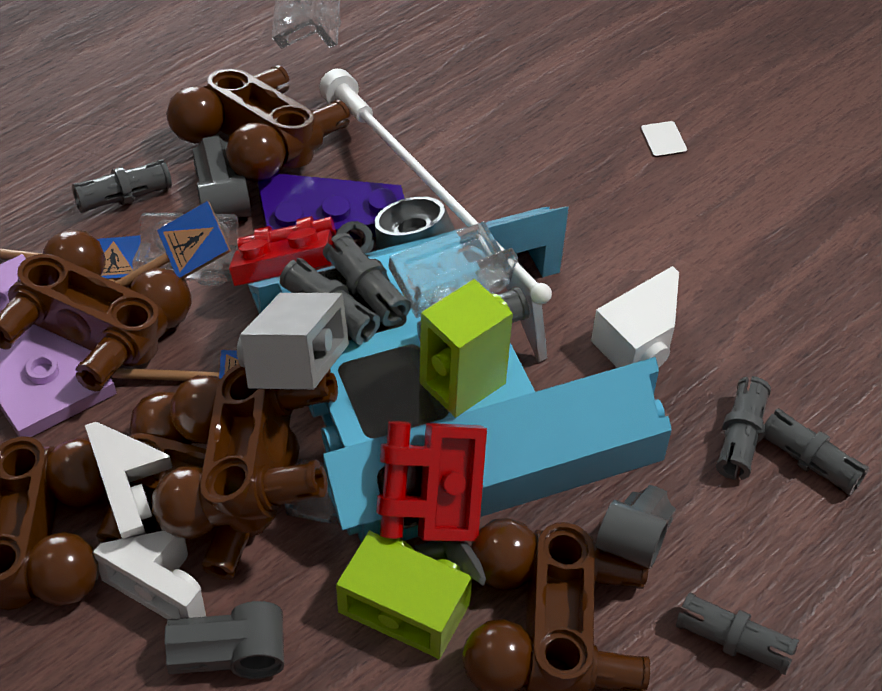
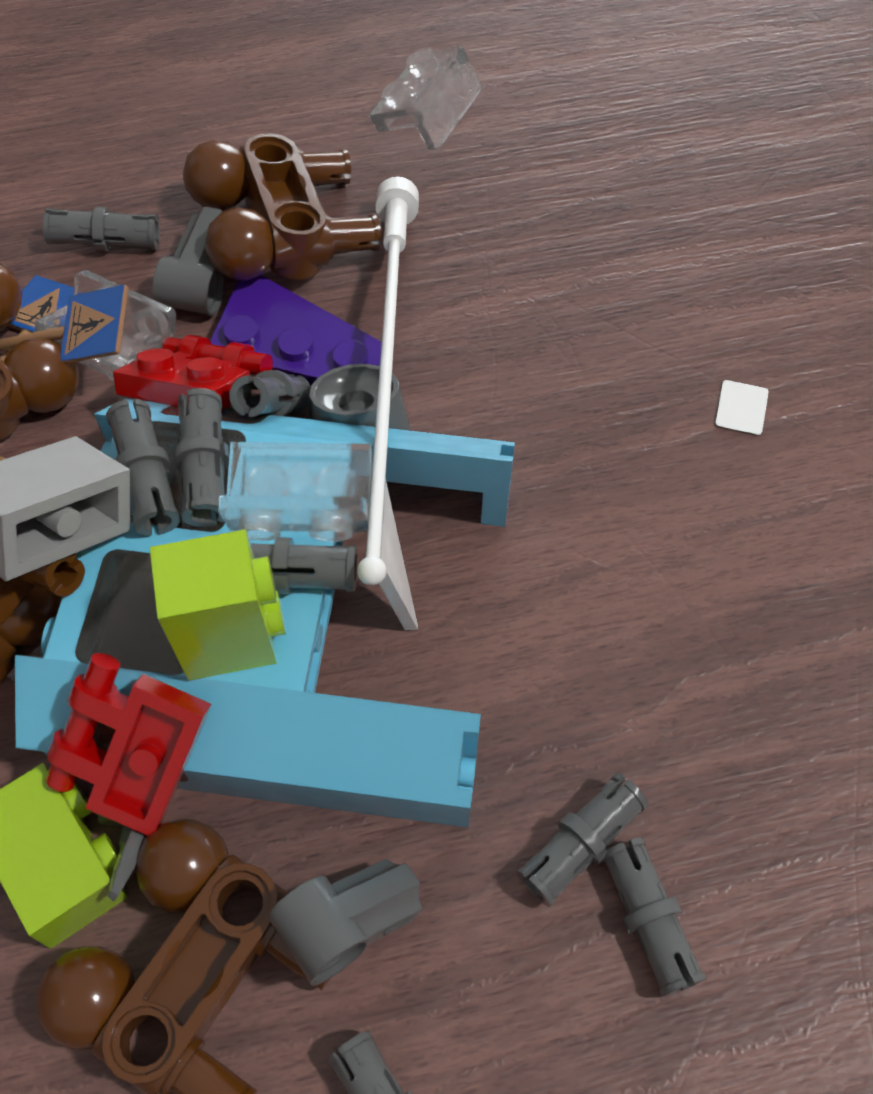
camera: 30 degrees right, 10 degrees up
(639, 322) = (544, 641): white slope -> none

